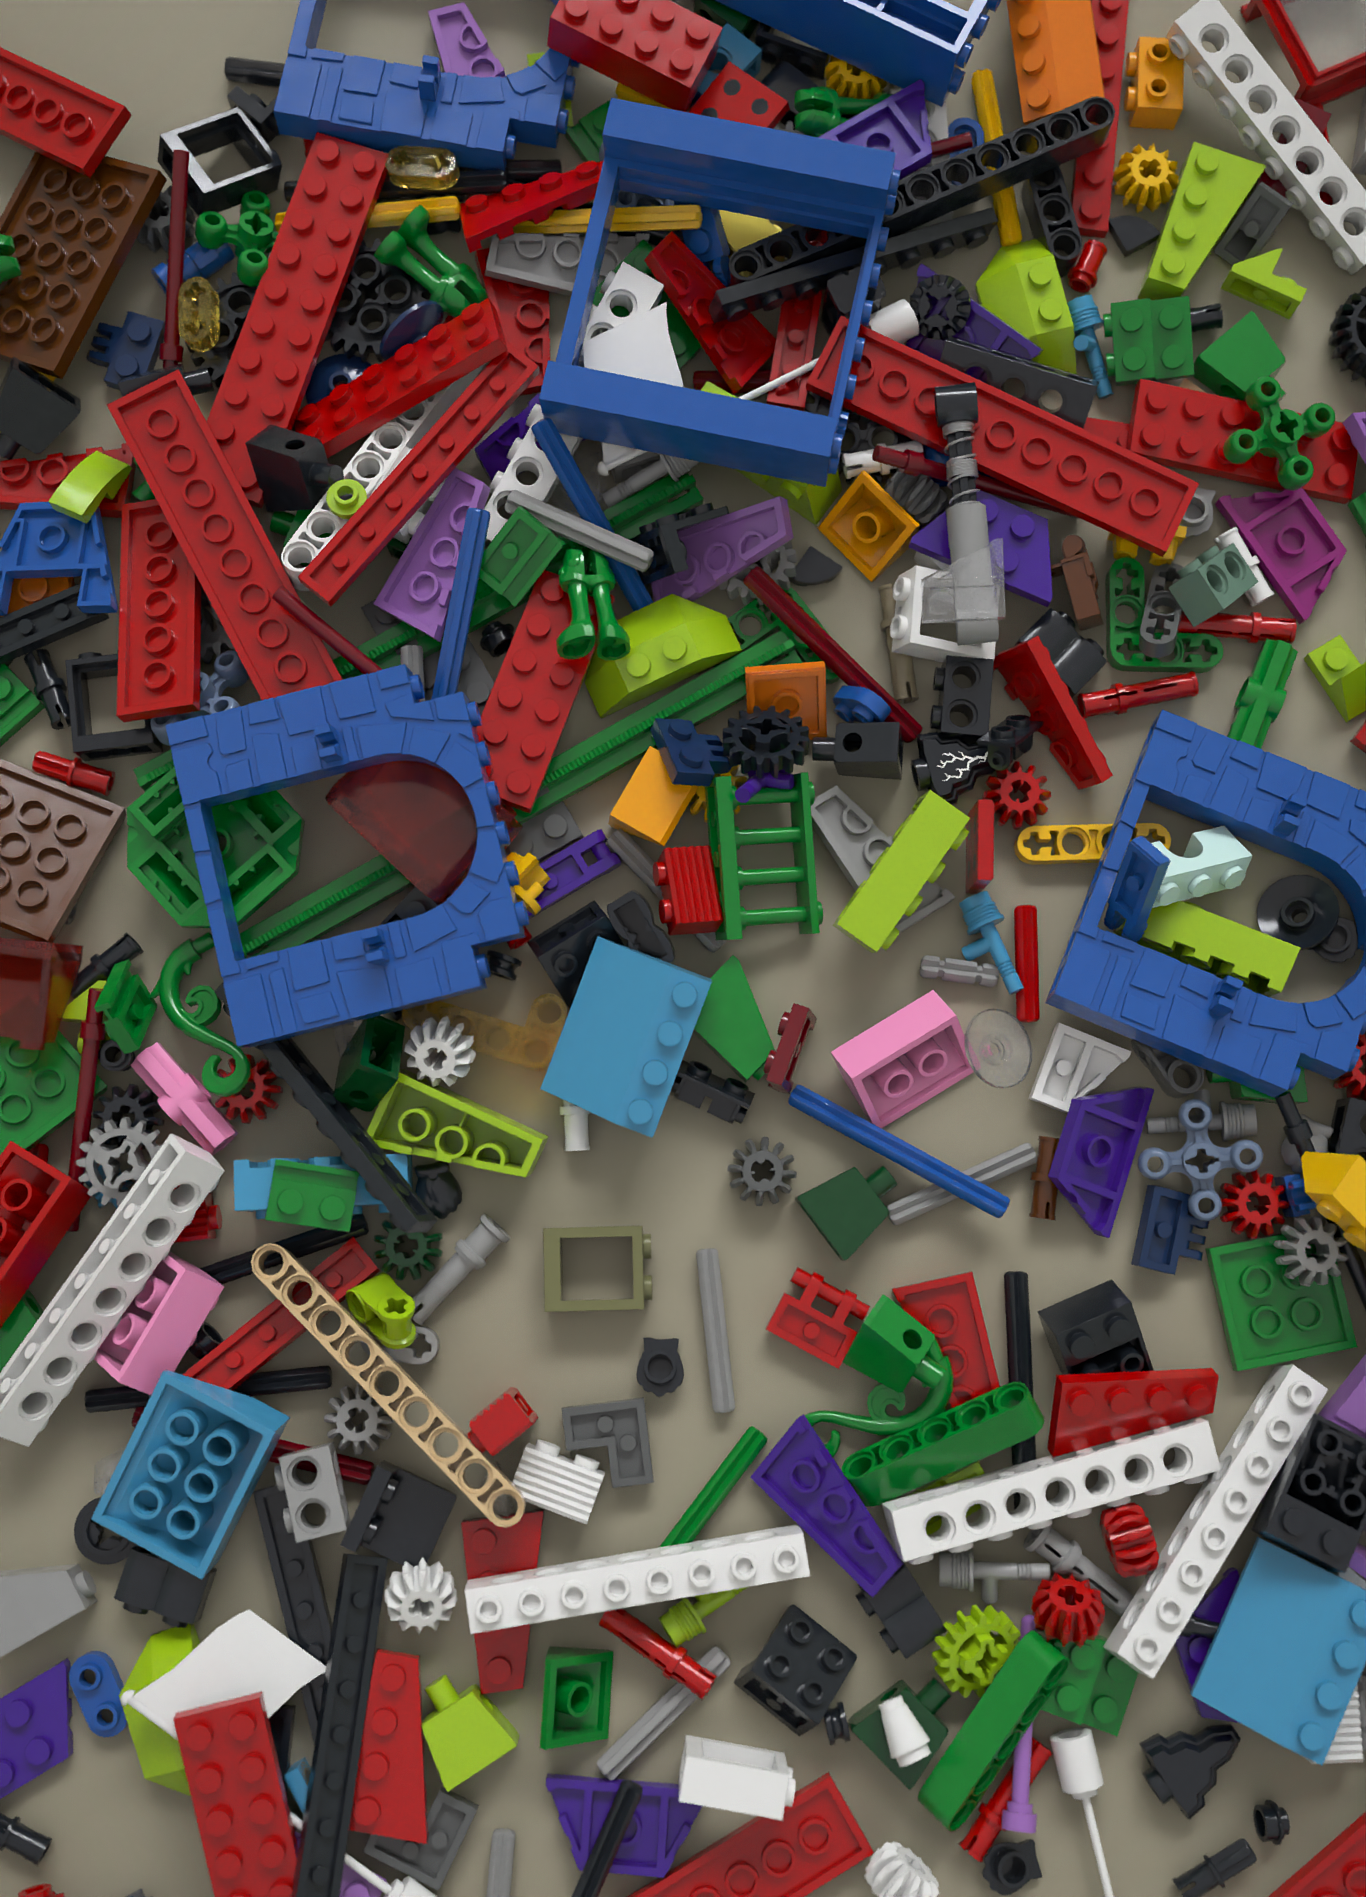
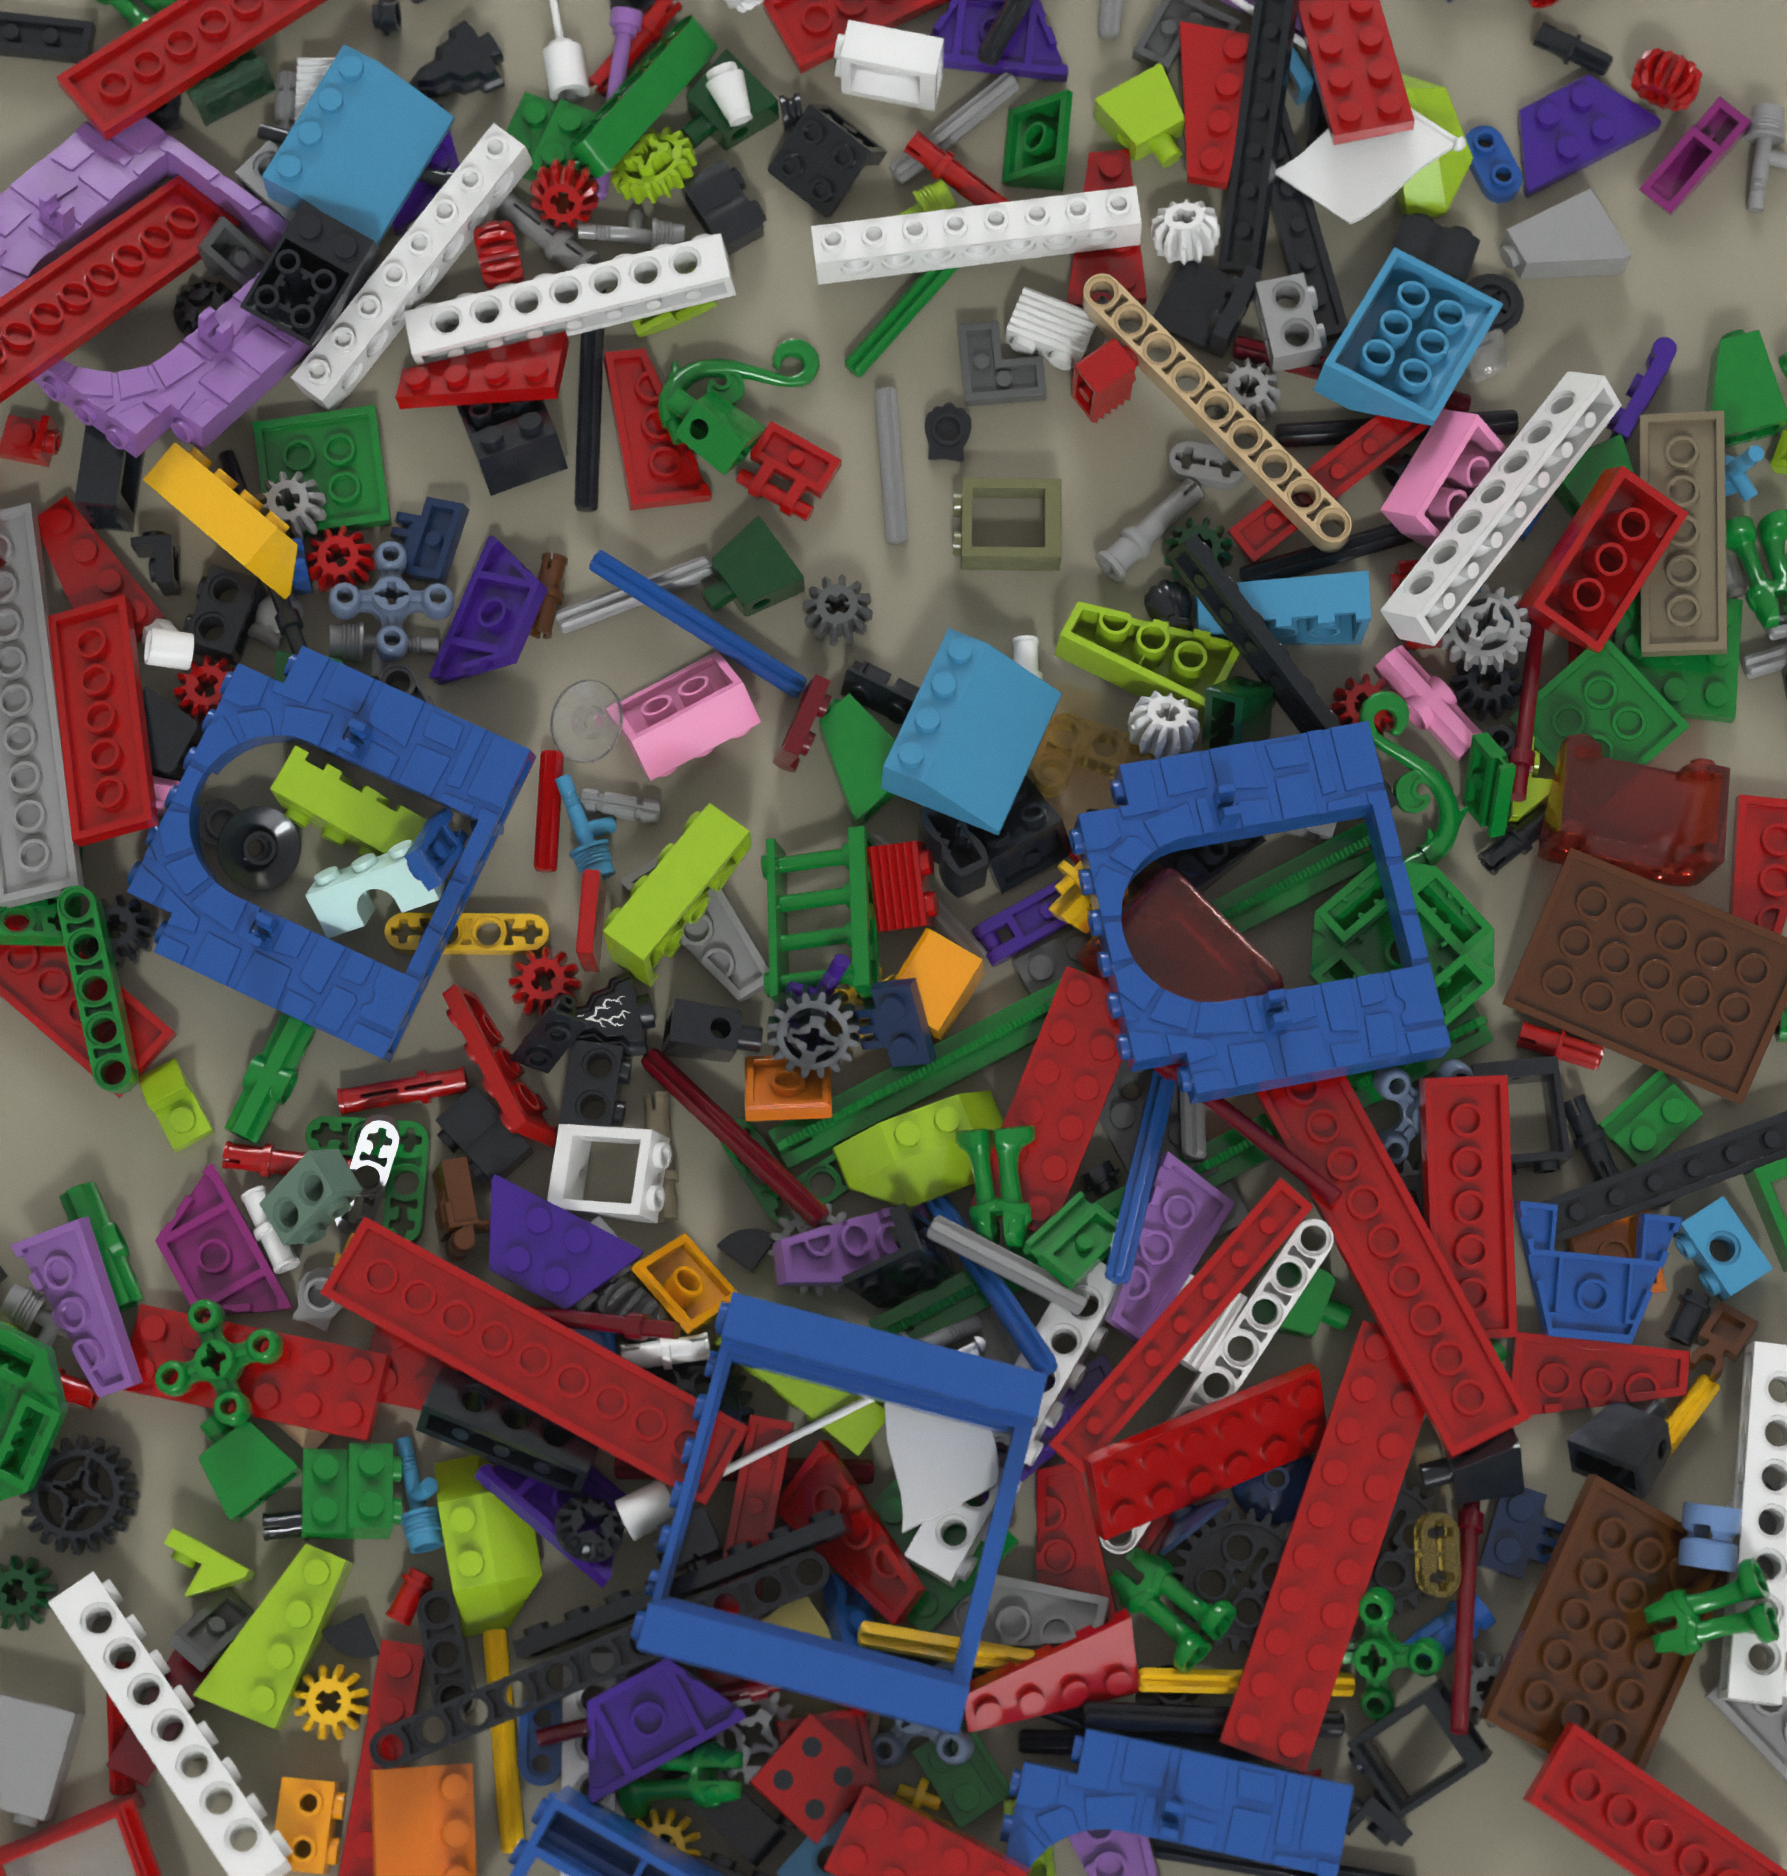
camera: 175 degrees left, 5 degrees down
(88, 484) = (1552, 1355): lime slope -> none
(291, 469) = (1324, 1348): black torso -> none
(312, 1195) = (1293, 584): green plate -> none
(345, 508) = (1248, 1304): lime plate -> none
(384, 1310) = (1221, 487): lime piece -> none
(422, 167) = (1179, 1736): clear yellow beam -> none
(823, 1503) = (795, 300): dark purple wing -> none
(860, 705) = (701, 1070): blue plate -> none
(943, 1444) = (673, 343): green beam -> none
(966, 518) = (580, 1257): piece -> none
(967, 589) = (590, 1163): clear wing -> none
(1073, 1067) = (510, 701): white wing -> none

